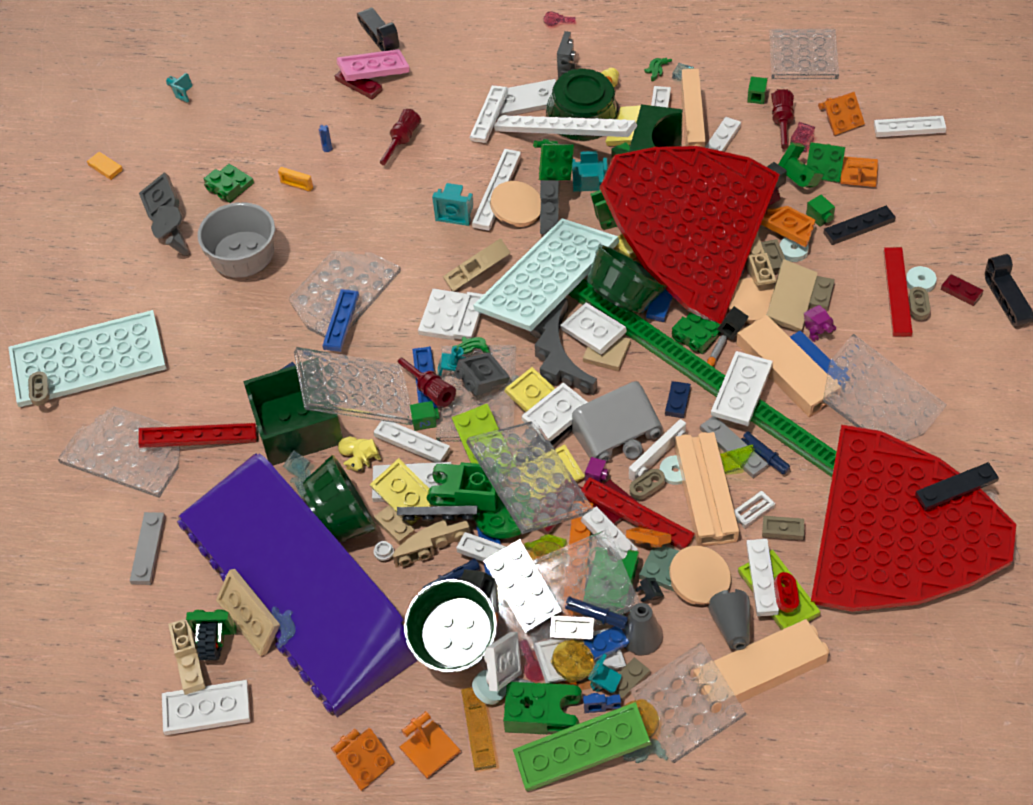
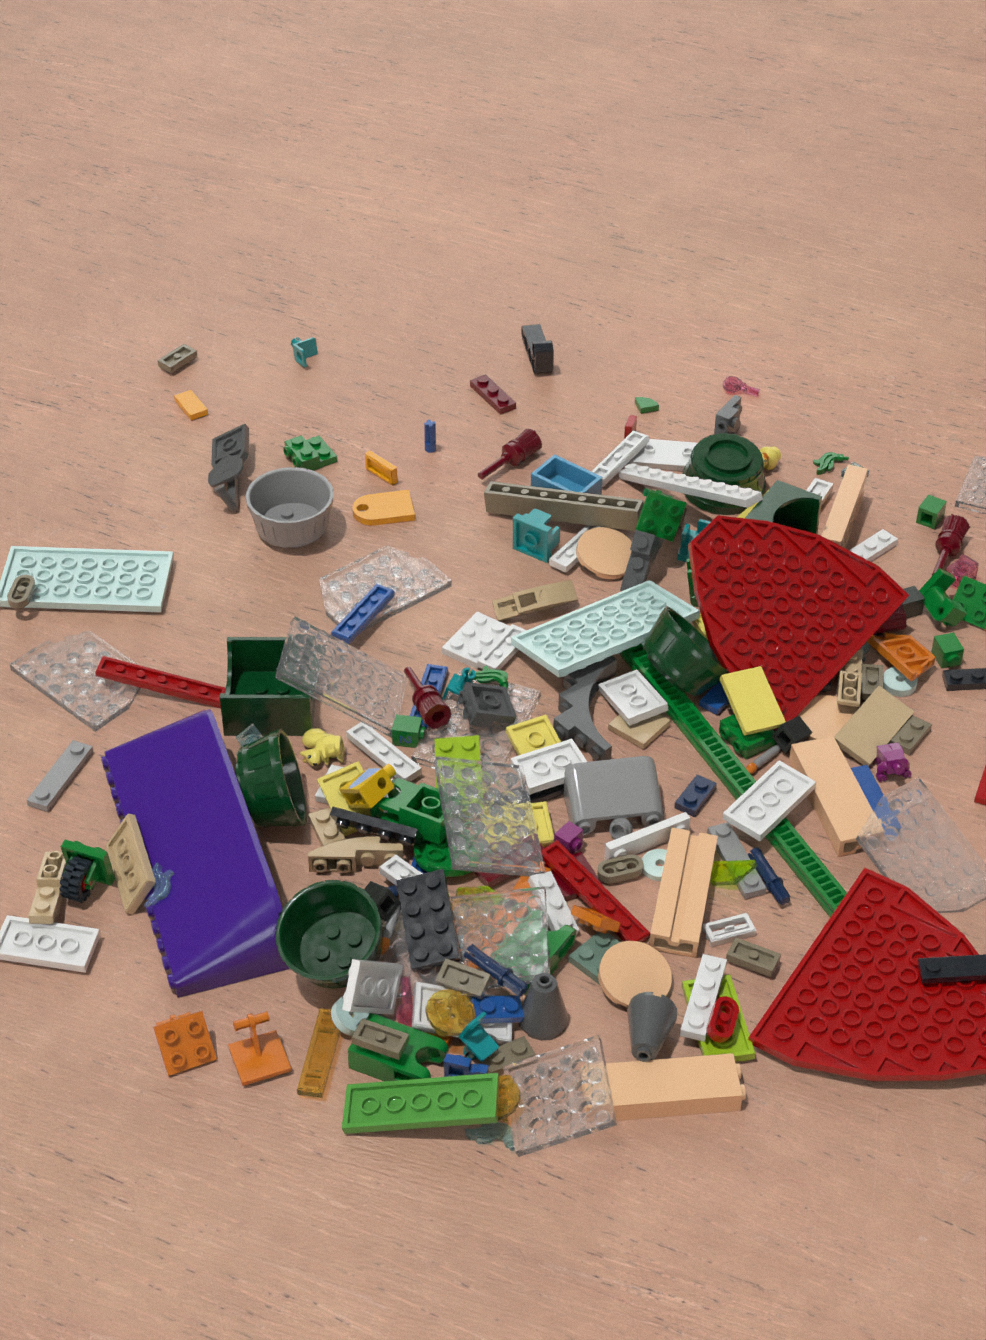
camera: 15 degrees right, 10 degrees down
(73, 124) = (177, 358): none -> dark tan plate
(313, 215) = (384, 508): none -> light orange tile
(372, 65) = (514, 379): bright pink plate -> none
(383, 551) = (301, 849): white plate -> none
(420, 480) = (368, 787): none -> yellow torso
(457, 150) = (565, 475): none -> dark azure piece
(466, 172) = (564, 505): none -> dark tan brick
(486, 82) = (630, 425): none -> tile
(489, 57) = (646, 404): none -> tile
(529, 704) = (380, 1039): none -> dark tan plate
(651, 589) = (574, 973): black tile -> none
(694, 304) = (752, 700): none -> light yellow tile

